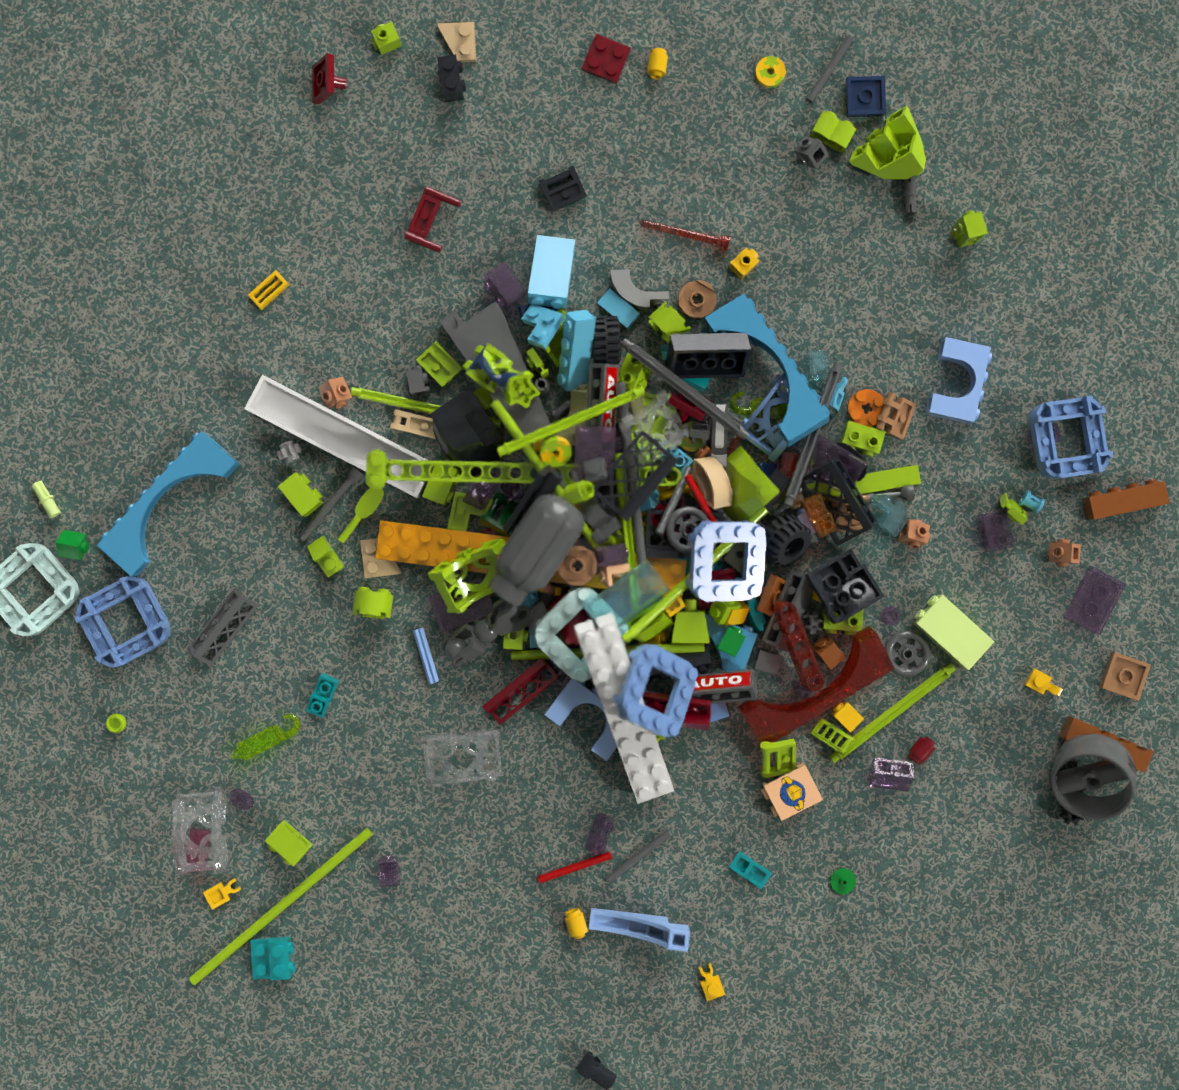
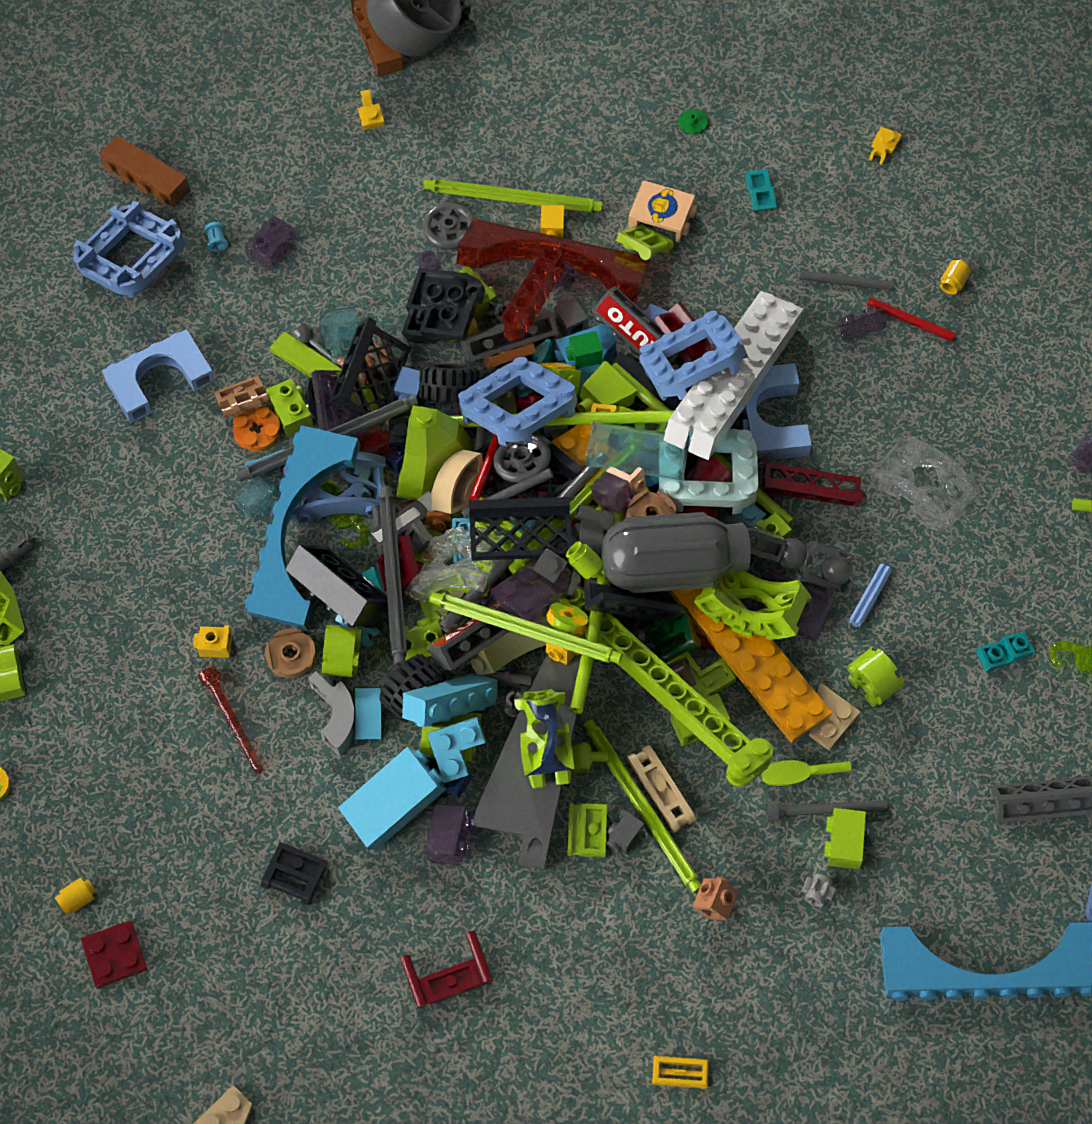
camera: 135 degrees left, 25 degrees down
(325, 556) = (879, 767): lime slope -> none
(329, 430) = (757, 869): white piece -> none
(450, 78) = (277, 1087): black brick -> none
(466, 431) = (627, 738): black slope -> none
(536, 364) = (497, 731): lime plate -> none
(593, 1068) = (1051, 167): black piece -> none
(641, 926) = (895, 220): light blue arch -> none
(811, 152) = (44, 672): dark grey brick -> none
(818, 515) = (398, 377): clear orange slope -> none
(828, 652) = (511, 277): dark orange brick -> none
(849, 740) = (581, 199): lime slope -> none
(891, 774) = (566, 152): clear purple brick -> none
(914, 534) = (336, 293): nougat brick -> none
(921, 750) = (521, 149): dark red brick -> none
(952, 631) = (394, 205): yellowish green brick -> none
(1014, 510) = (237, 240): lime plate -> none
(1064, 552) = (239, 177): nougat brick -> none
(1094, 600) = (257, 129): clear purple plate -> none
(1125, 676) = (301, 61): medium nougat plate -> none

